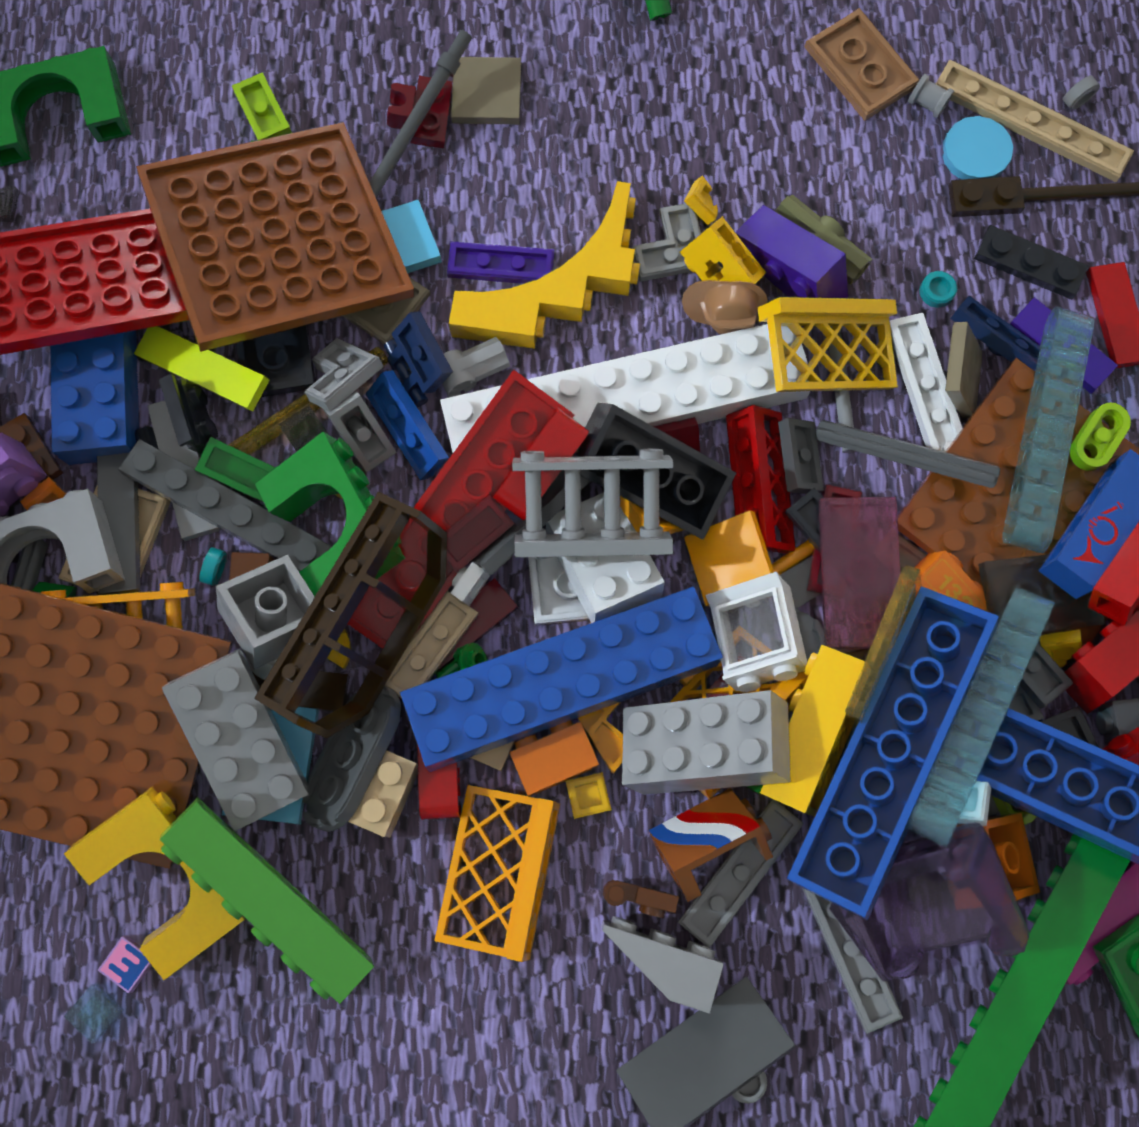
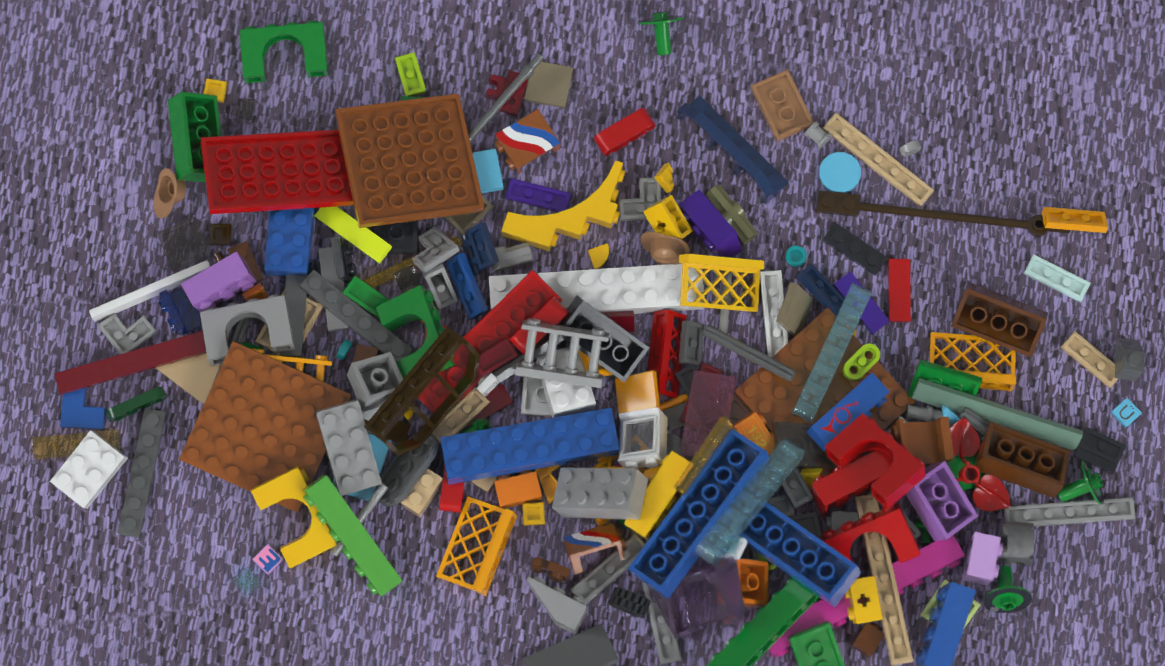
camera: 10 degrees right, 0 degrees up
(290, 842) = (364, 512): none -> light grey bar
(465, 177) = (526, 140): none -> panel
(617, 339) = (599, 255): none -> yellow tile
(620, 139) = (623, 131): none -> red beam
(792, 932) = (629, 602): none -> black tyre
(801, 131) = (745, 156): none -> dark blue plate

